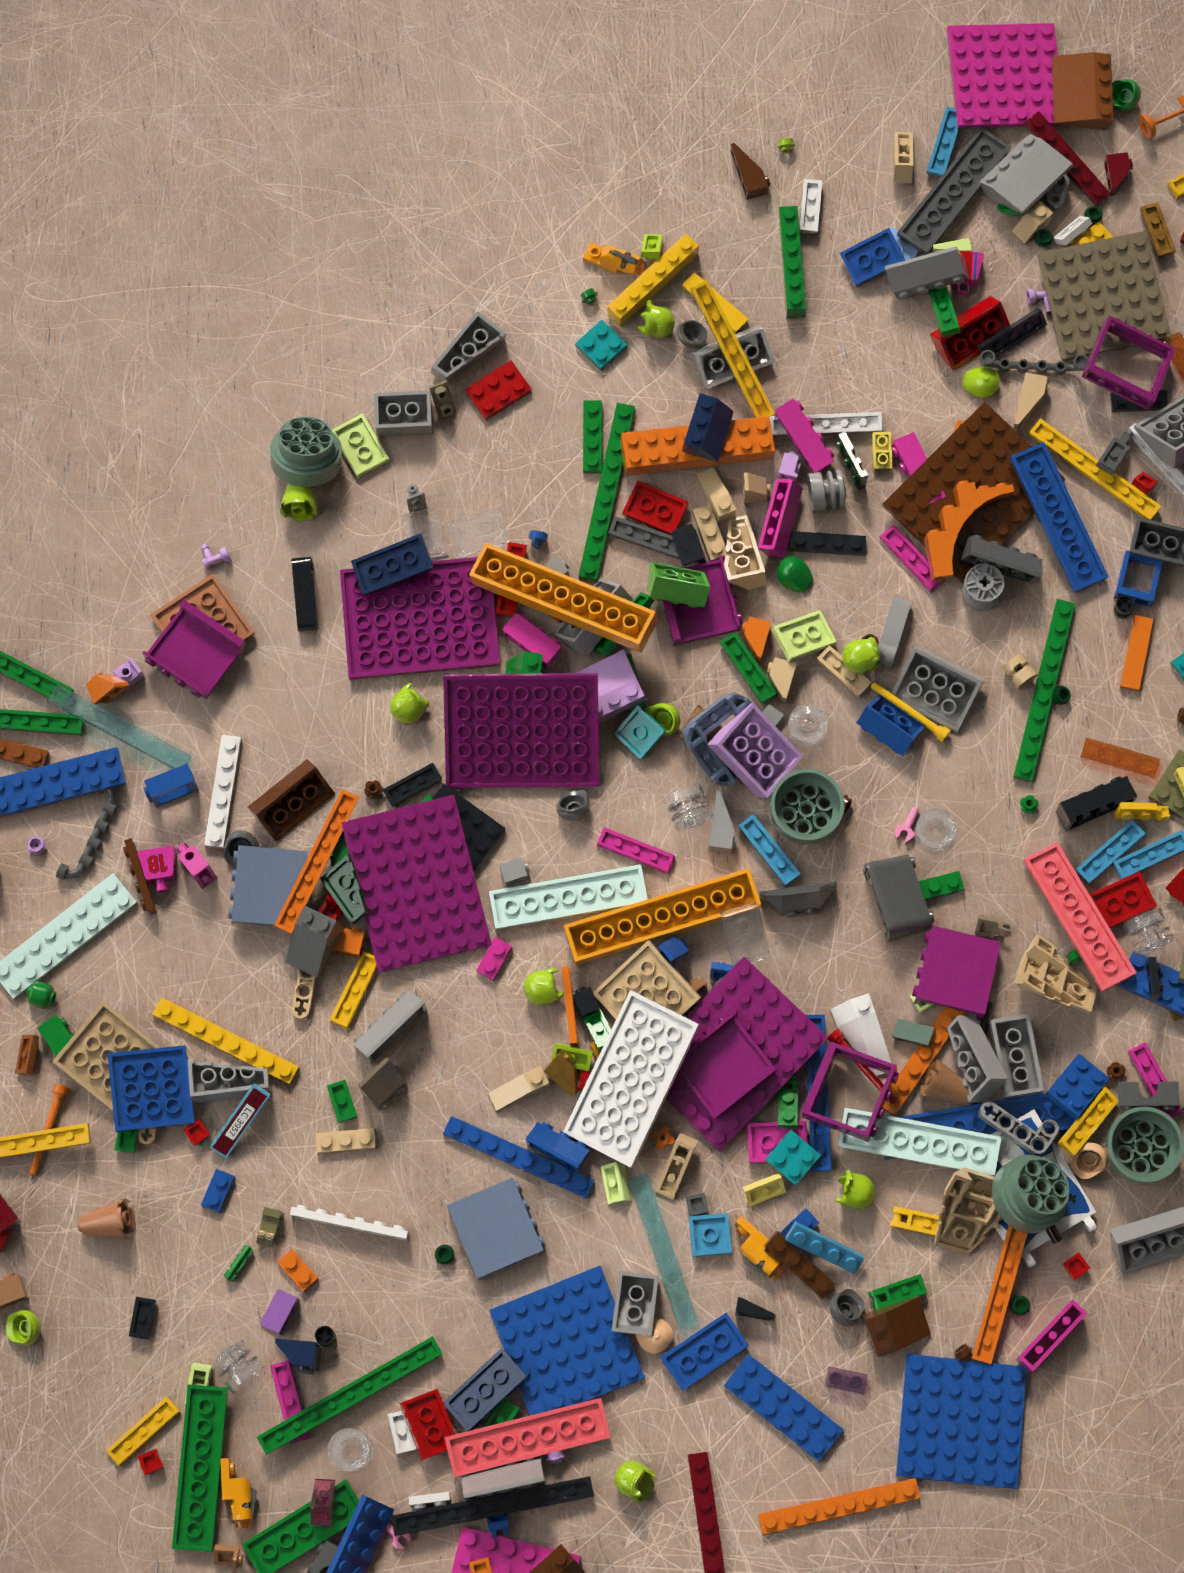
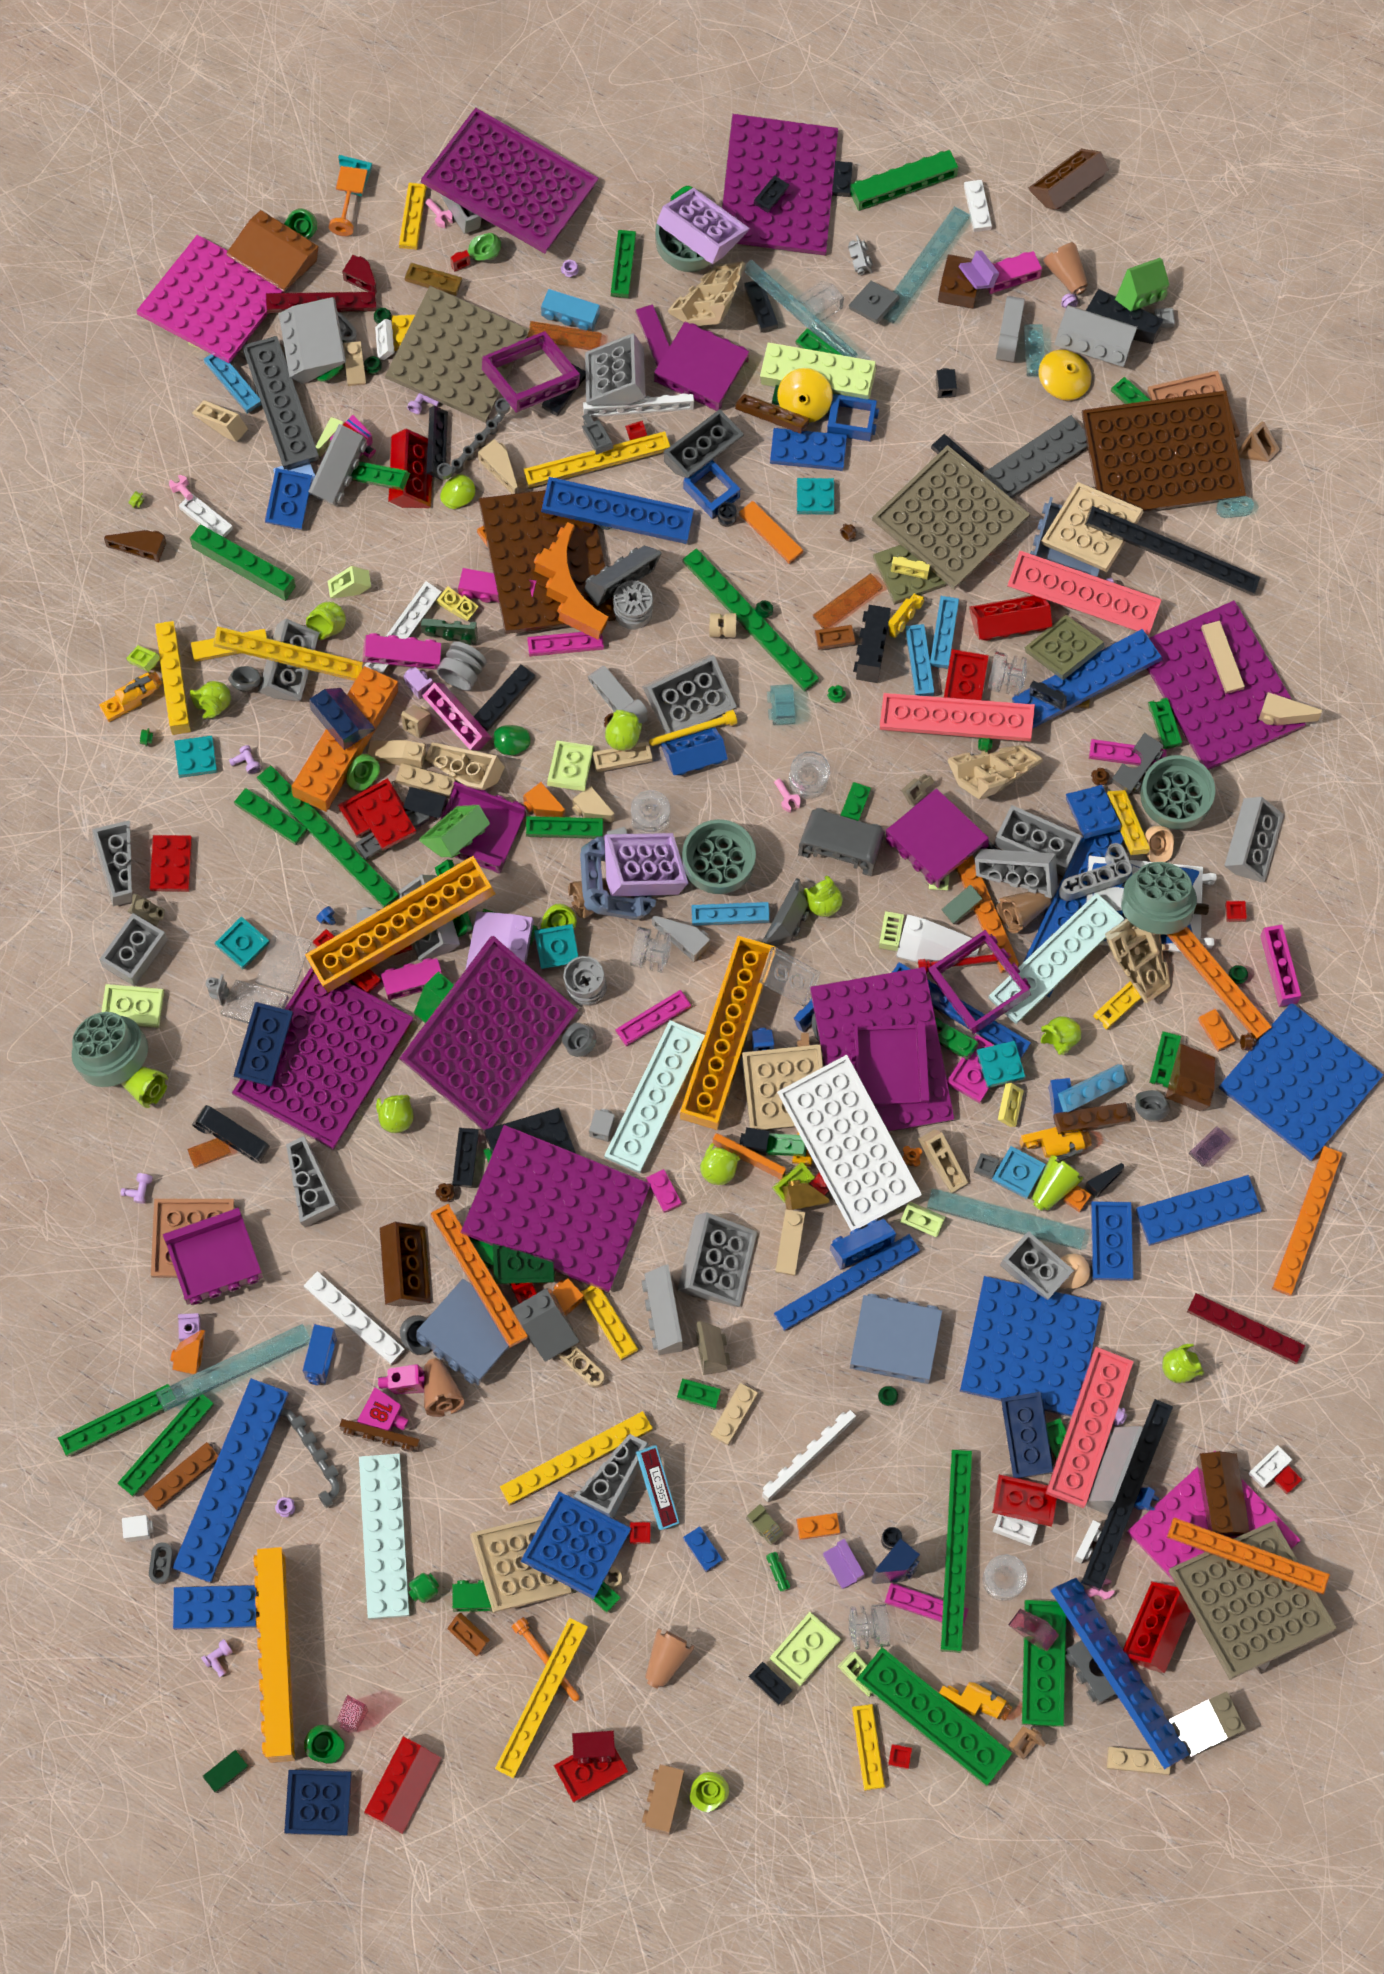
camera: 60 degrees left, 5 degrees down
(190, 1327) = (805, 1649): none -> yellowish green tile
(207, 896) = (440, 1390): none -> nougat cone
(279, 586) = (208, 1152): none -> clear orange tile
(306, 681) = (311, 1187): none -> light grey wedge
(463, 1041) = (717, 1260): none -> light grey slope
(469, 490) = (241, 943): none -> teal plate
(621, 765) = (584, 970): none -> light grey wheel
(623, 393) = (253, 766): none -> lavender piece
(652, 524) = (385, 817): none -> red plate
(679, 479) = (362, 772): none -> bright green hat
(719, 1271) = (1055, 1183): none -> lime cone
(722, 1298) = (1077, 1198): none -> orange plate
(789, 360) = (326, 619): none -> lime hair
(821, 170) = (181, 486): none -> bright pink bar
(835, 915) = (824, 898): none -> lime hair
(835, 997) = (888, 944): none -> yellowish green slope
(836, 355) = (349, 582): none -> yellowish green slope
(956, 1319) = (1216, 1030): none -> orange plate
(985, 766) = (782, 704): none -> clear light blue brick
(1079, 768) = (834, 637): none -> dark orange plate

